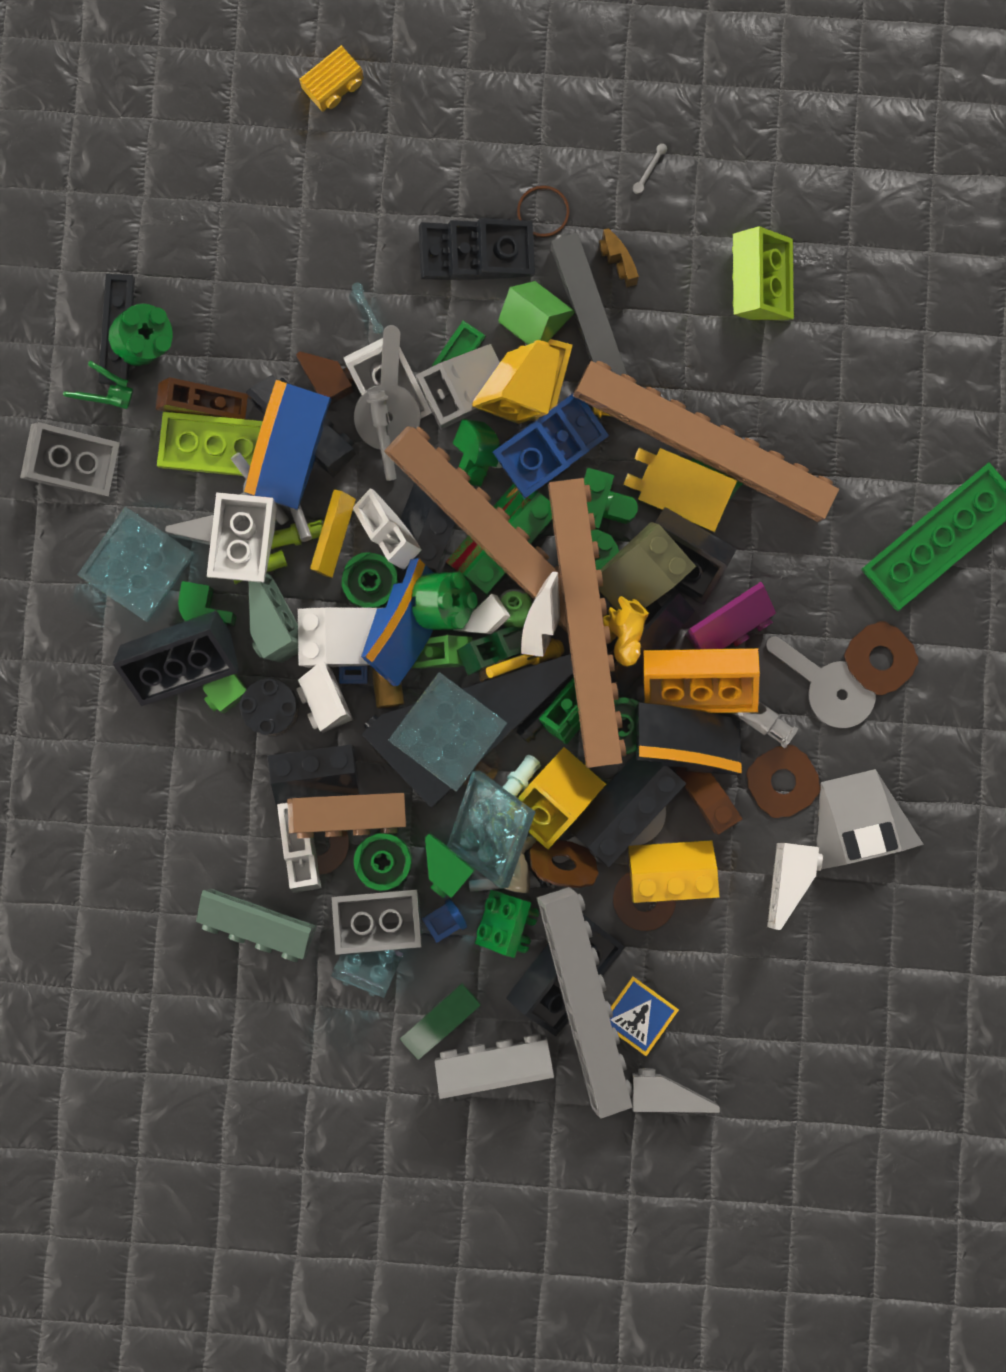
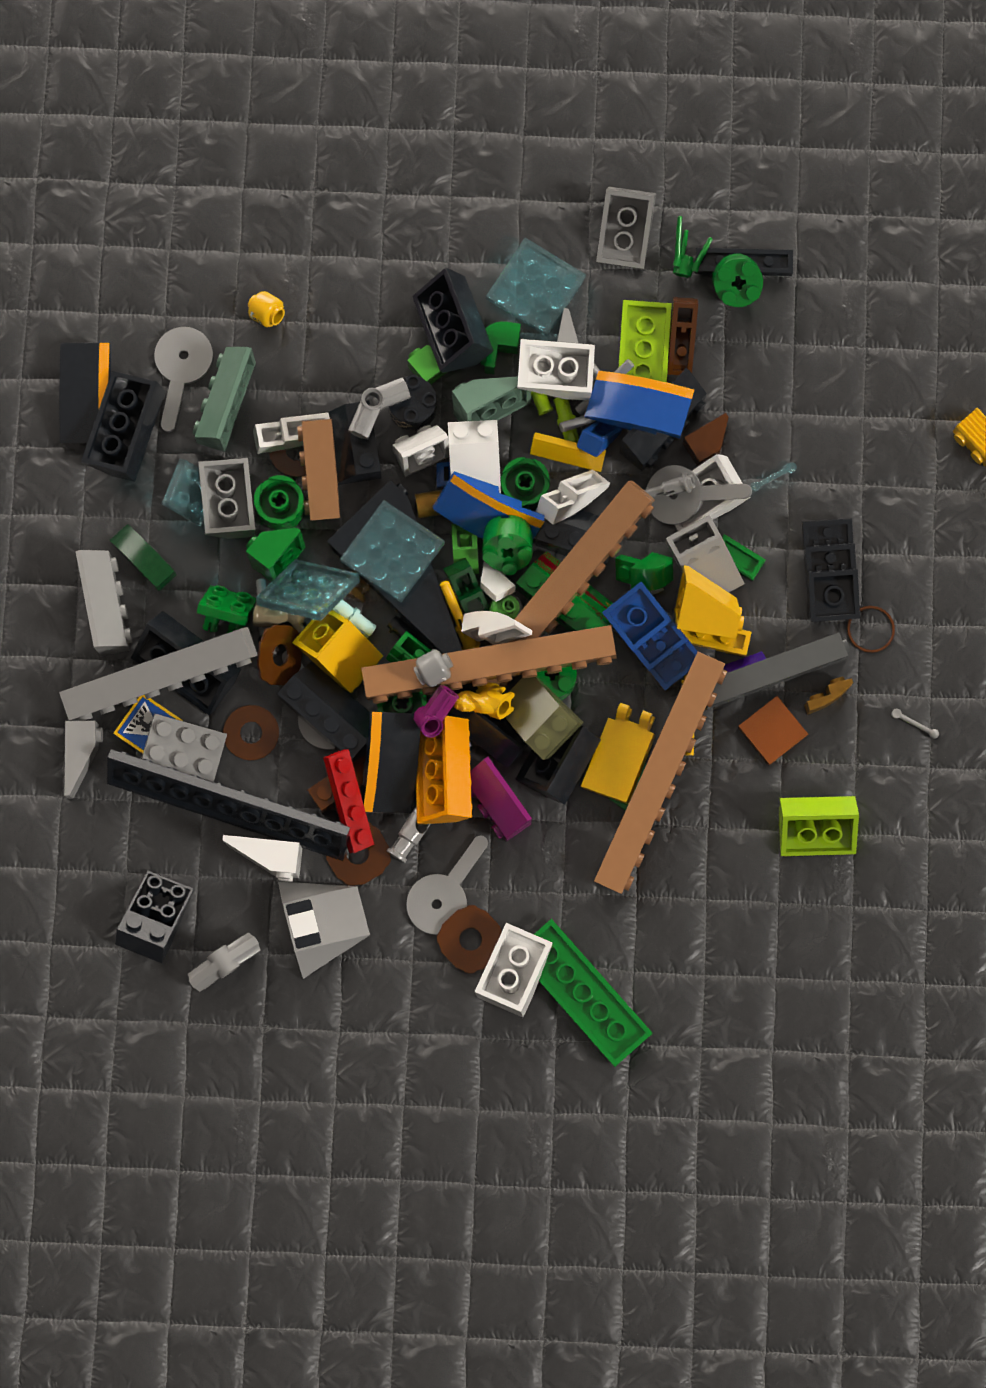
camera: 85 degrees right, 5 degrees down
(150, 875) = (266, 309): none -> yellow head
(219, 975) = (179, 370): none -> light grey piece
(242, 1088) = (82, 384): none -> black slope
(265, 733) = (366, 415): none -> light grey piece
(285, 1042) = (123, 425): none -> black slope
(321, 499) = (597, 437): none -> blue slope
(445, 920) = (230, 559): blue tile -> none
(533, 313) = (774, 621): bright green slope -> none
(578, 348) = (744, 662): none -> dark purple piece
(595, 683) = (433, 668): none -> light grey head
(607, 503) = (602, 684): green brick -> none
(645, 690) = (435, 711): none -> magenta piece
(655, 321) = (772, 730): none -> dark orange tile
(664, 975) = (184, 747): none -> light grey plate
(673, 871) = (274, 754): yellow slope -> none
(732, 787) = (348, 799): none -> red plate
(733, 925) = (227, 804): none -> black plate
(853, 1010) = (153, 916): none -> black slope
(908, 931) = (223, 961): none -> light grey piece
(922, 608) = (513, 970): none -> white slope

